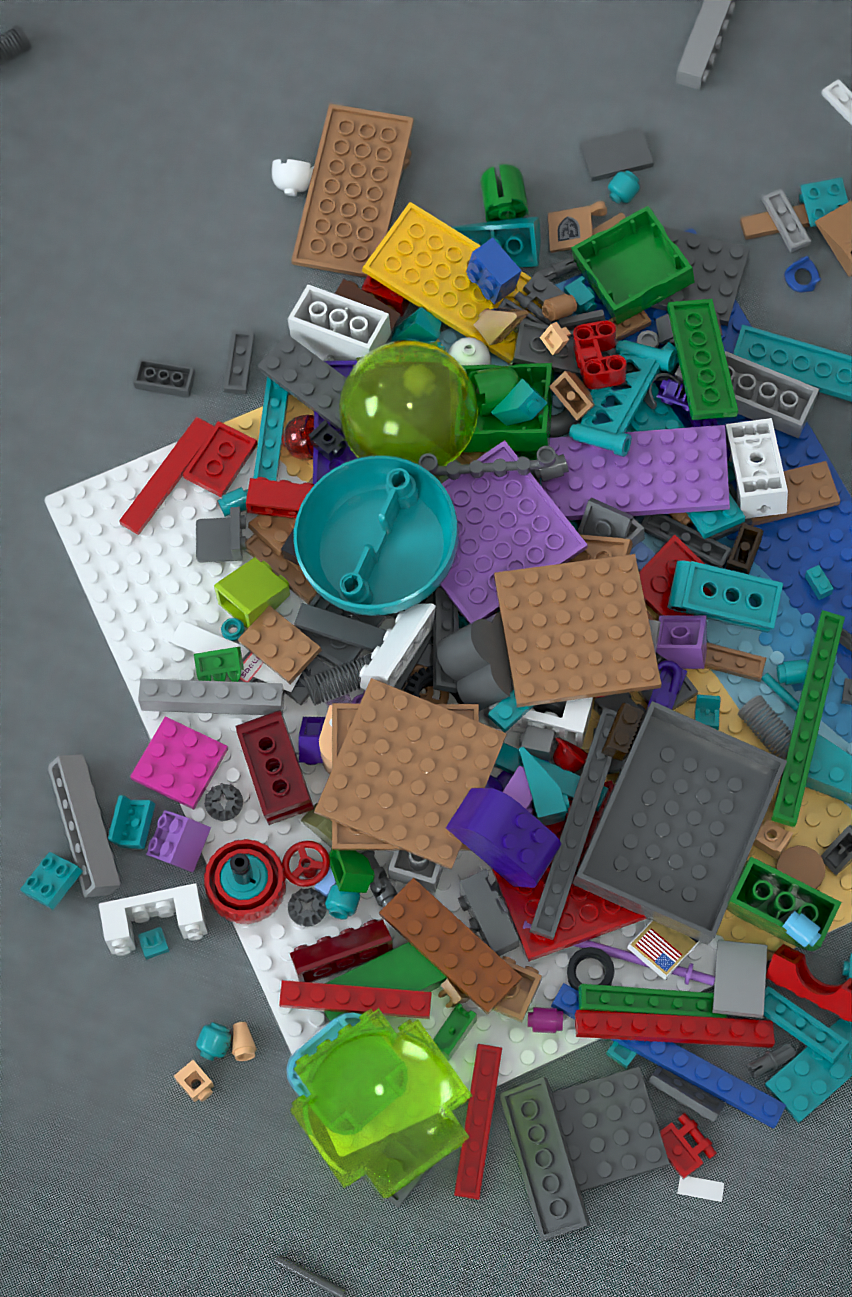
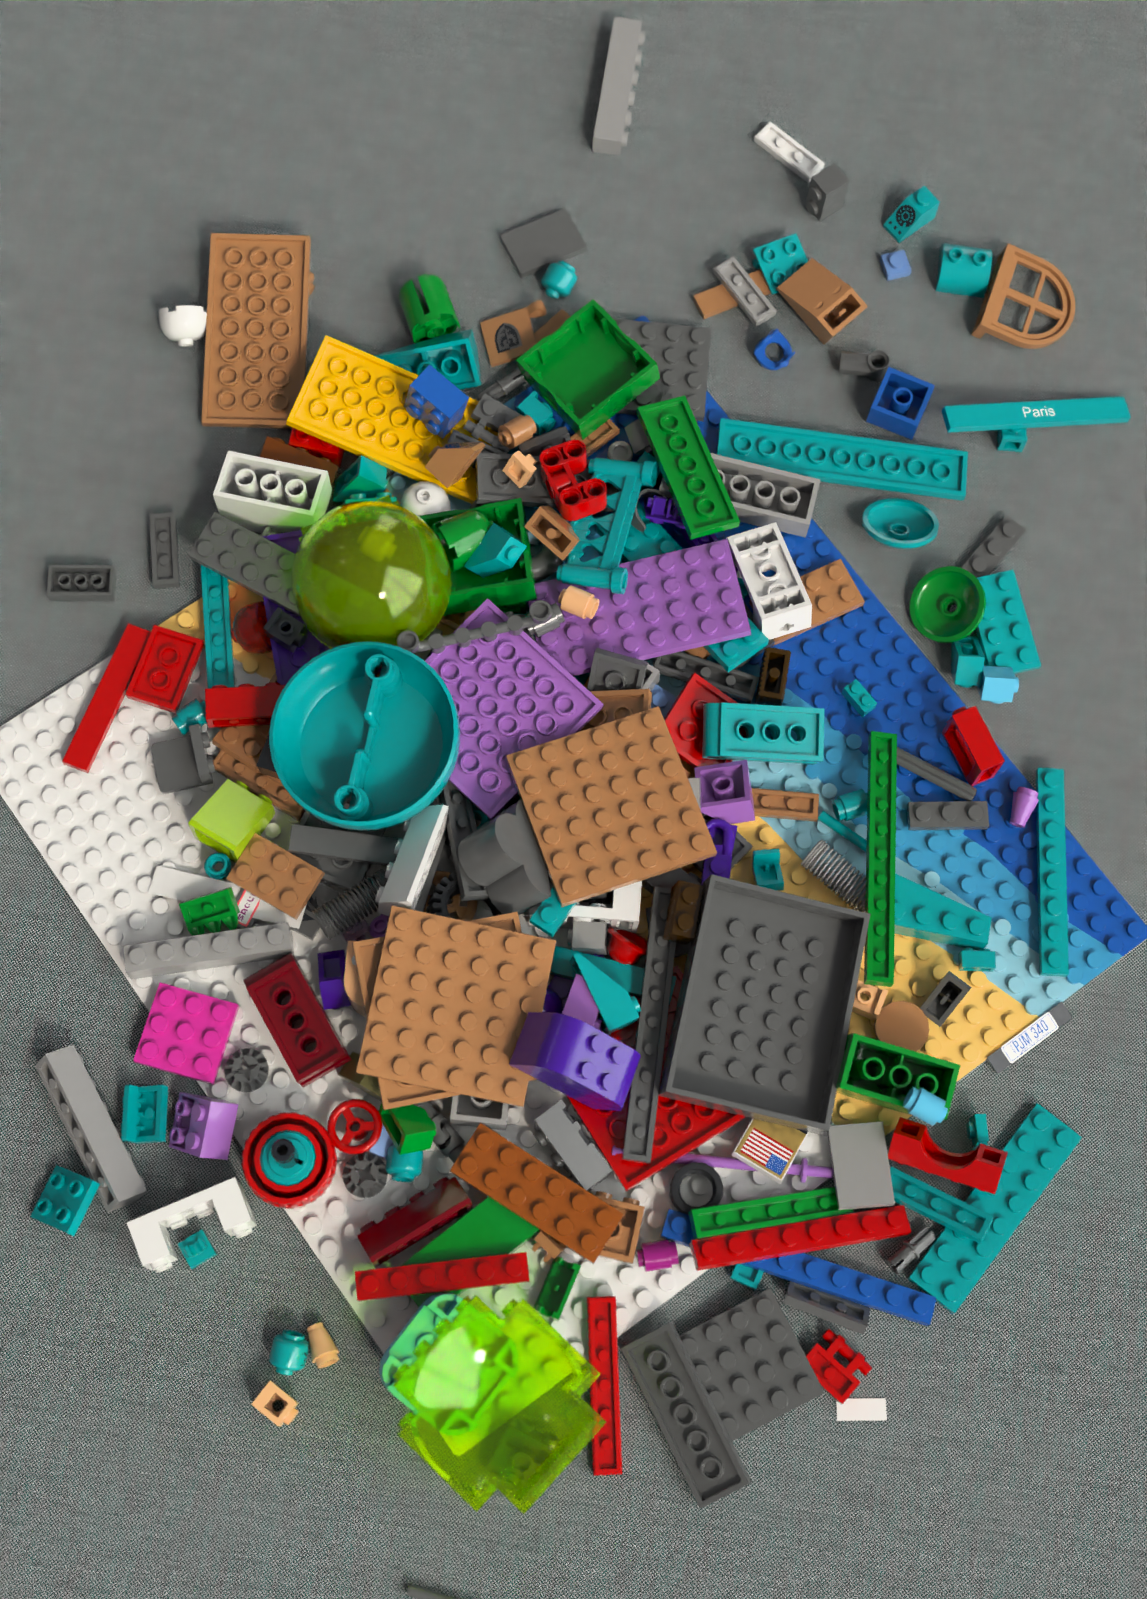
camera: 20 degrees left, 5 degrees up
(583, 457) = (578, 602): none -> light nougat brick

